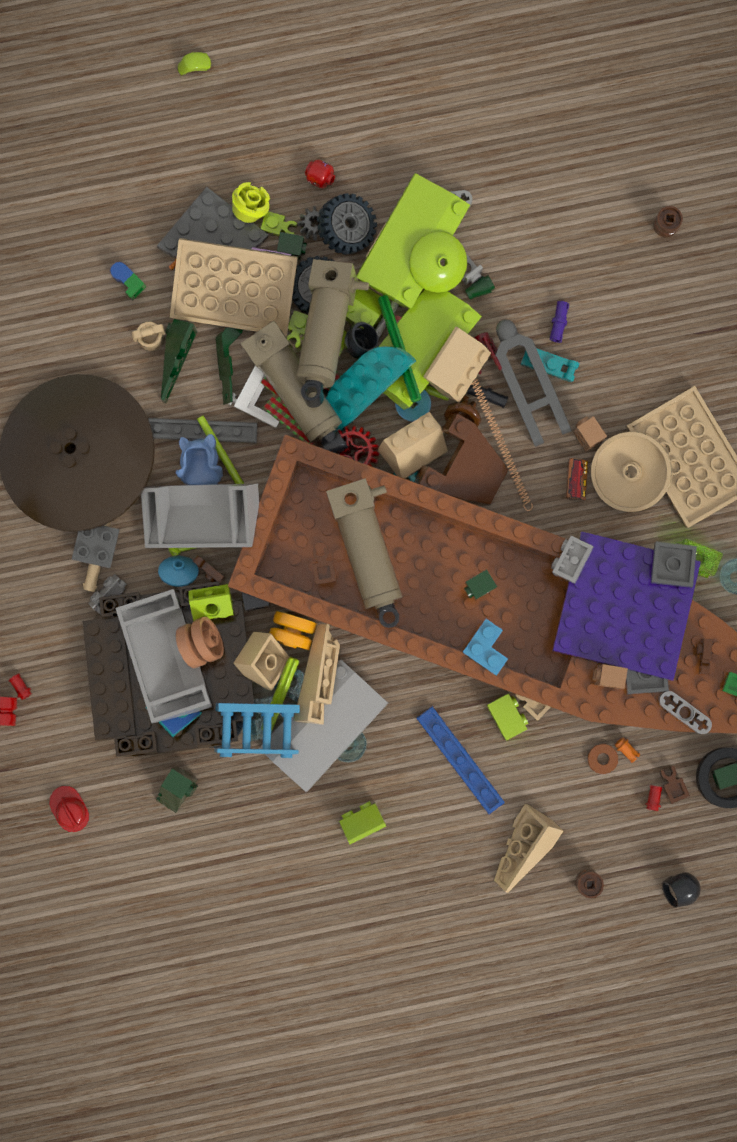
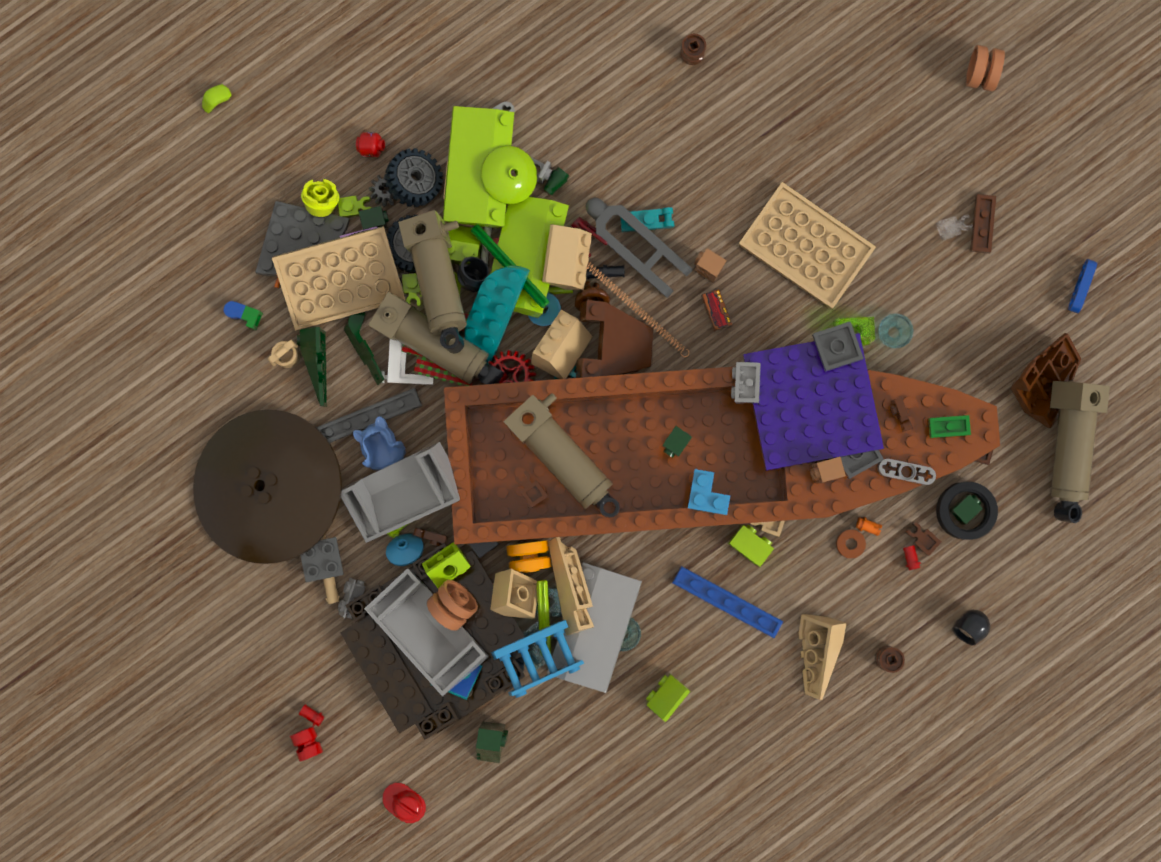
camera: 20 degrees left, 0 degrees up
(220, 451) = (396, 429): lime bar -> none
(559, 321) = (638, 179): dark purple pin -> none
(631, 471) = (761, 281): tan dish -> none

